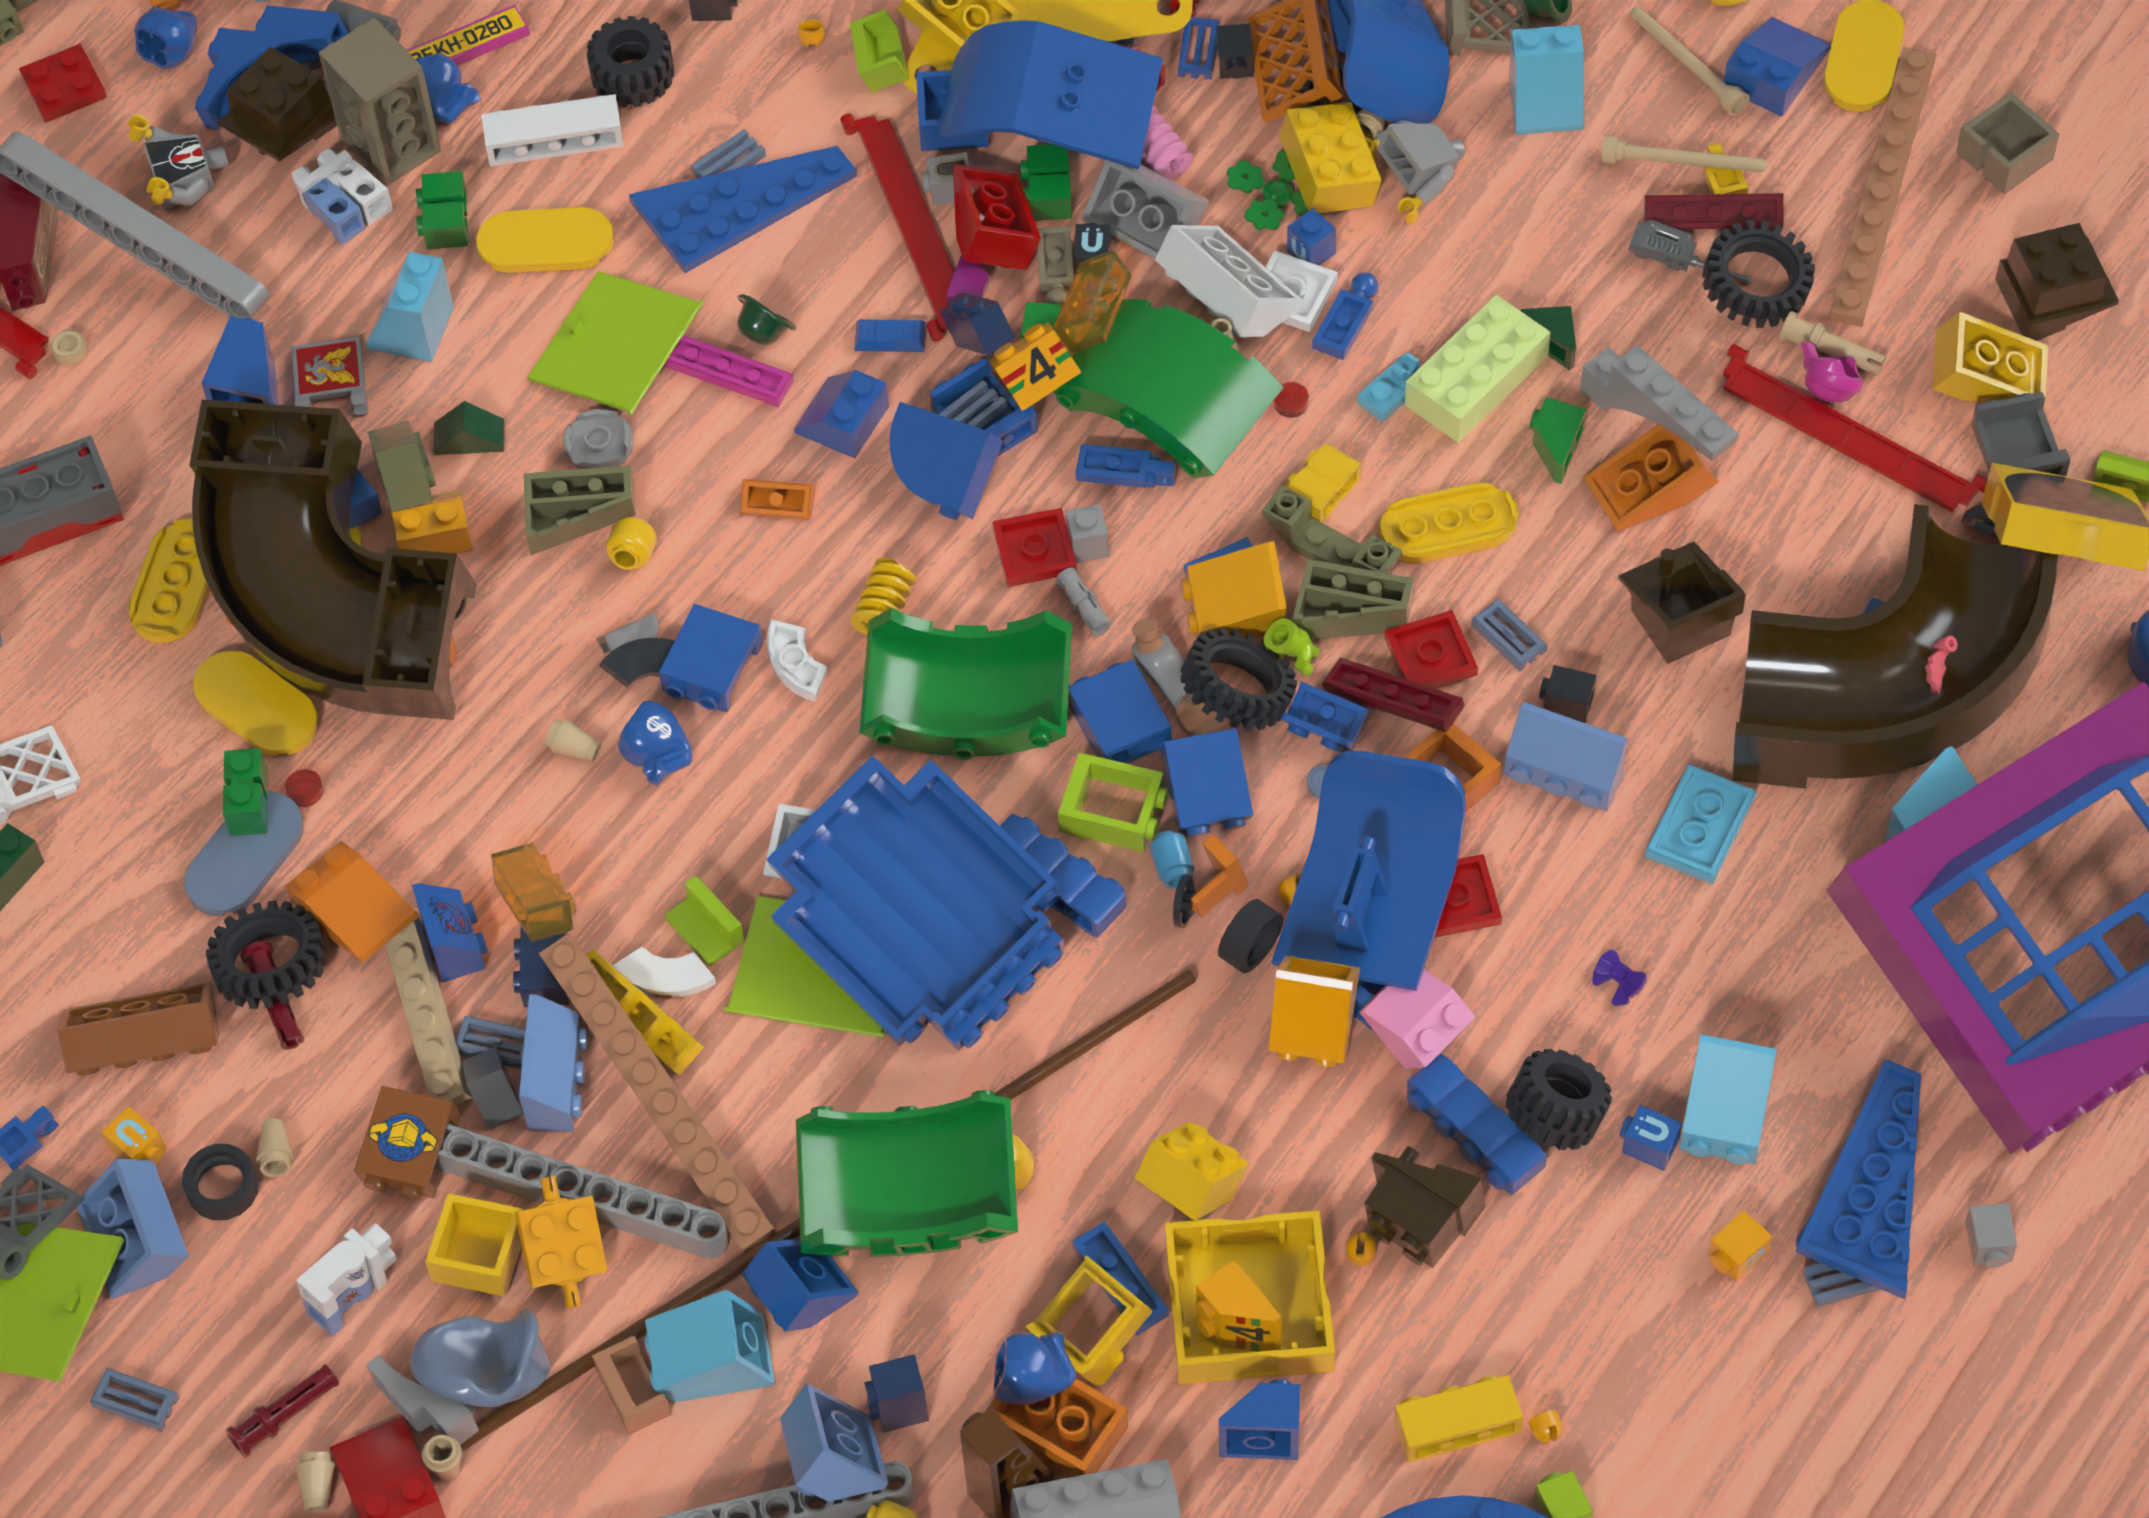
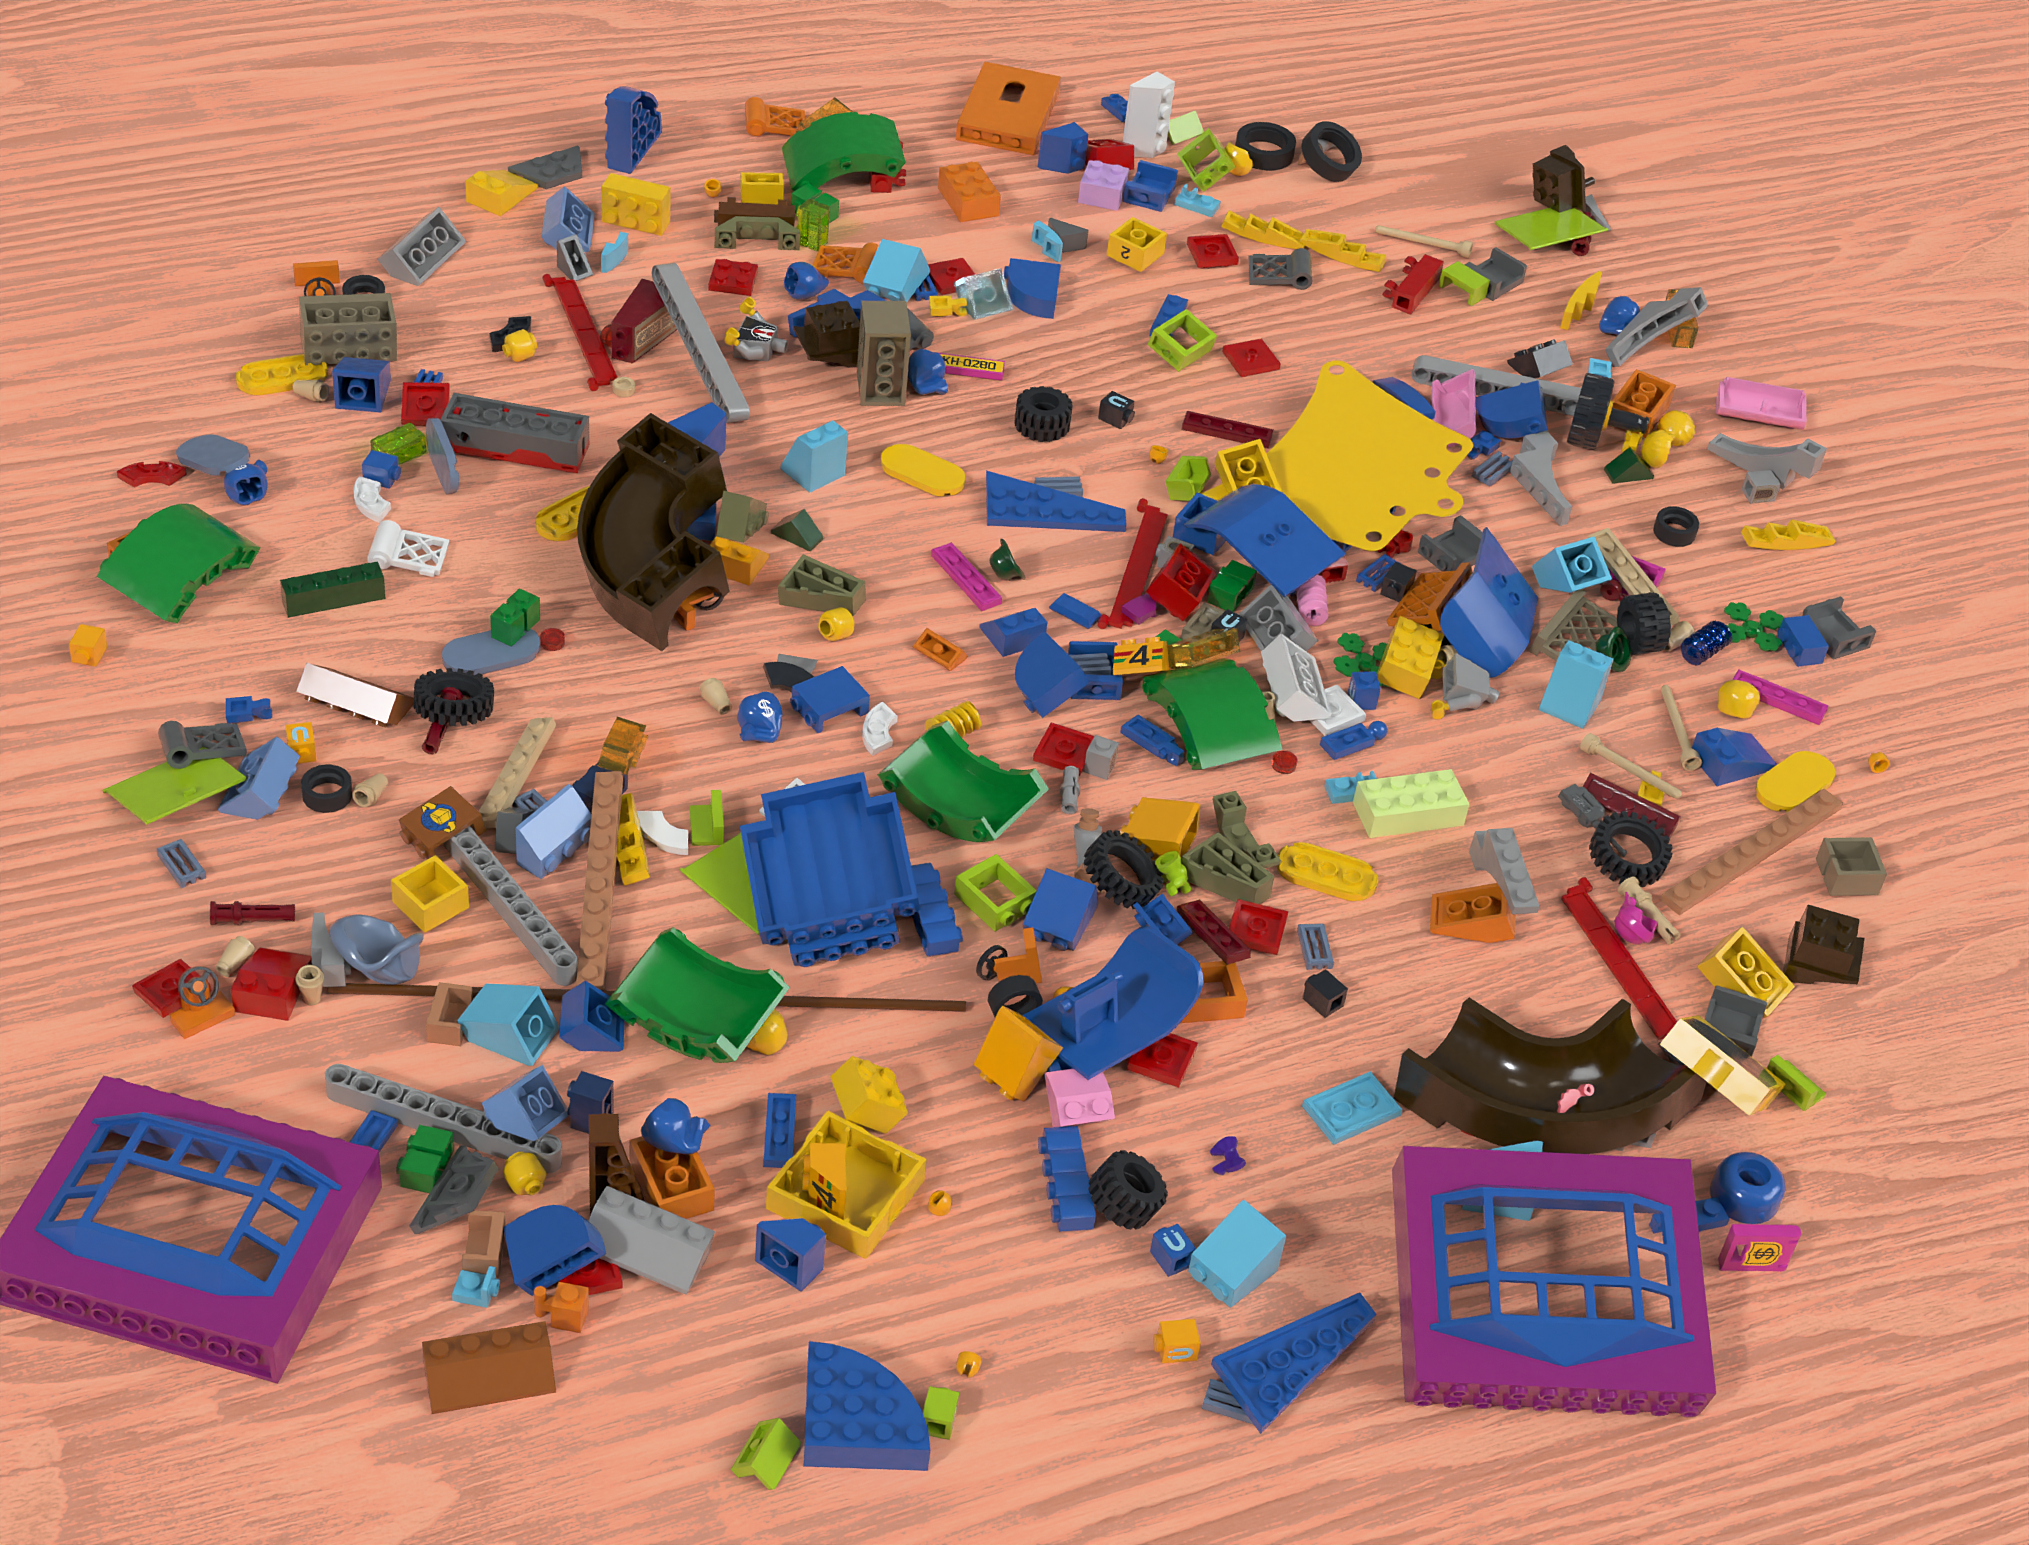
camera: 25 degrees right, 15 degrees down
(255, 703) = (564, 588): yellow tile -> none
(330, 371) = (750, 467): flag -> none
(342, 194) = (830, 387): hips -> none
(346, 1276) = (345, 866): white hips -> none
(351, 901) = (521, 696): orange slope -> none
(443, 210) = (879, 427): green piece -> none
(450, 931) = (561, 740): blue slope -> none
(552, 130) = (972, 423): white brick -> none
(561, 1241) = (476, 917): light orange plate -> none
(598, 440) = (869, 569): light grey tile -> none
(615, 341) = (917, 532): lime piece -> none
(976, 323) = (1125, 622): dark blue brick -> none
(1107, 1353) = (732, 1159): yellow piece -> none
(1119, 713) = (1039, 848): blue brick -> none
(1171, 857) = (1008, 936): dark azure brick -> none
(1325, 480) = (1268, 809): yellow brick -> none
(1421, 1205) = (992, 1195): dark brown piece -> none
(1458, 1417) = (916, 1325): yellow brick -> none
(1557, 434) = (1434, 862): green slope -> none
(1562, 336) = (1478, 812): dark green slope -> none
(1565, 757) = (1292, 1020): medium blue slope -> none
(1683, 600) = (1435, 981): dark brown piece -> none
(1991, 1235) = (1350, 1433): light grey brick -> none

